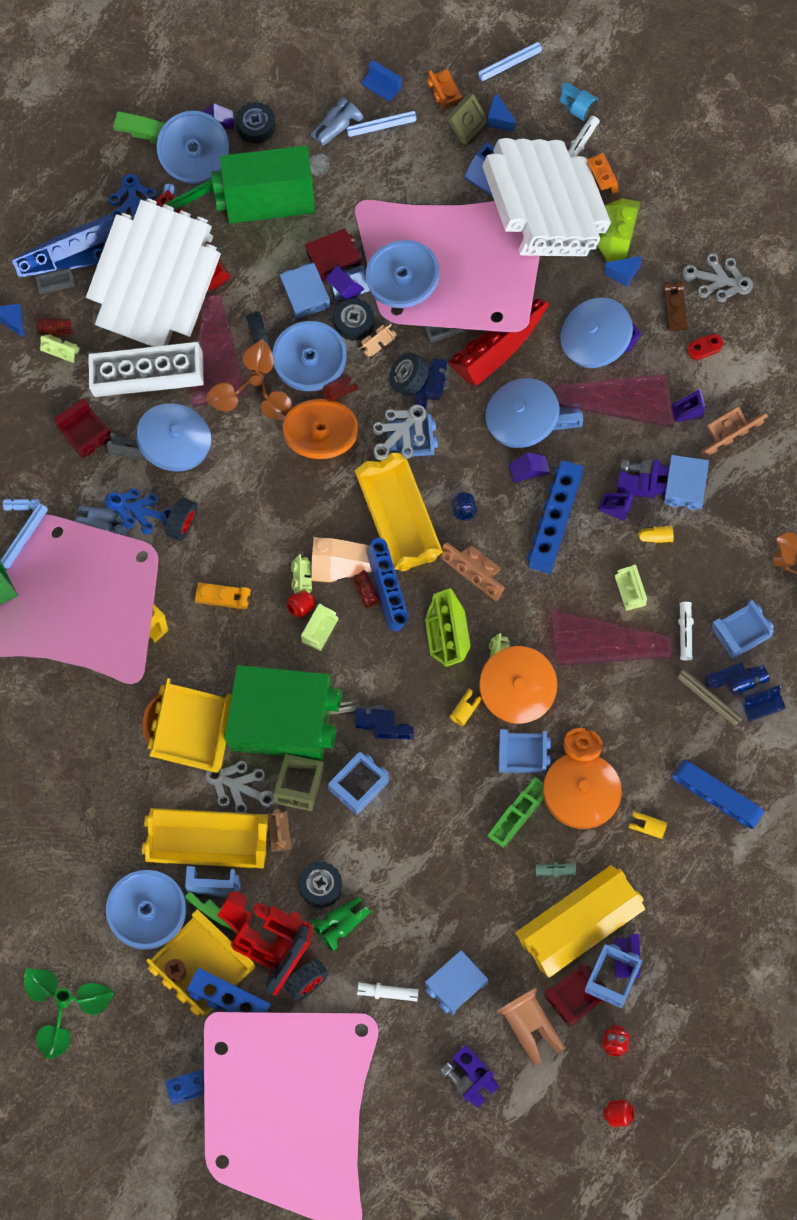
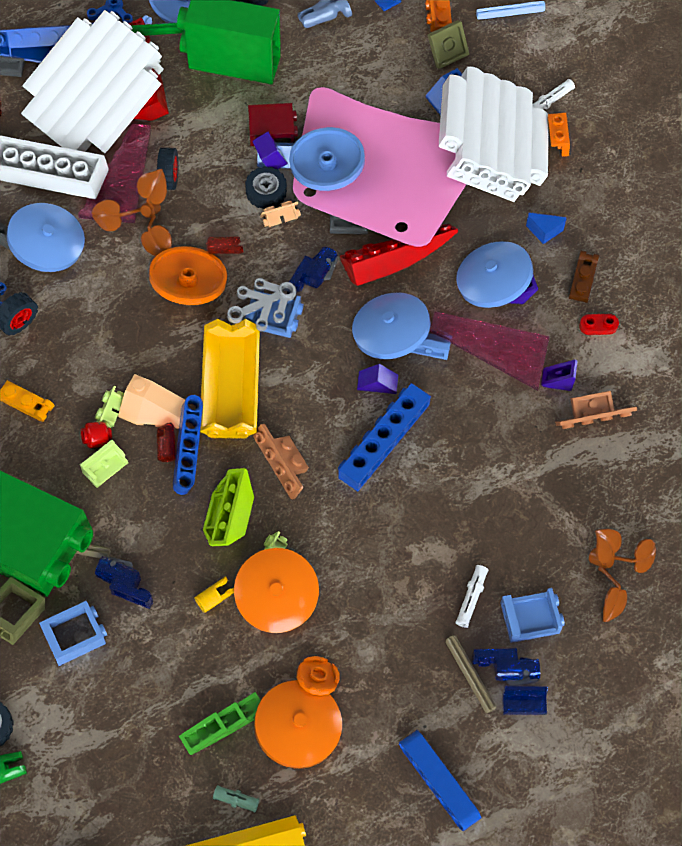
camera: 15 degrees right, 5 degrees down
(305, 290) = (230, 147): medium blue panel -> none
(309, 355) = (207, 205): medium blue dish -> none
(319, 164) = (293, 42): clear gear -> none
(381, 123) = (367, 26): light blue axle -> none
(408, 374) = (294, 252): black wheel -> none
(464, 506) = (297, 395): clear blue head -> none
(500, 117) = (480, 53): blue slope -> none
(523, 752) = (253, 662): medium blue panel -> none
(584, 104) = (564, 66): dark azure piece -> none
(597, 641) = (376, 575): clear pink wing -> none
(616, 504) = (451, 446): dark purple slope -> none
(617, 239) = (555, 189): lime wedge -> none
(631, 588) = (432, 533): yellowish green hinge -> none
(646, 482) = (488, 434): dark purple hips -> none
(652, 827) = (356, 789): yellow hinge -> none
(657, 534) = (479, 488): yellow hinge -> none
(686, 482) = (529, 447): medium blue panel -> none
(720, 280) = (637, 266): light grey plant -> none

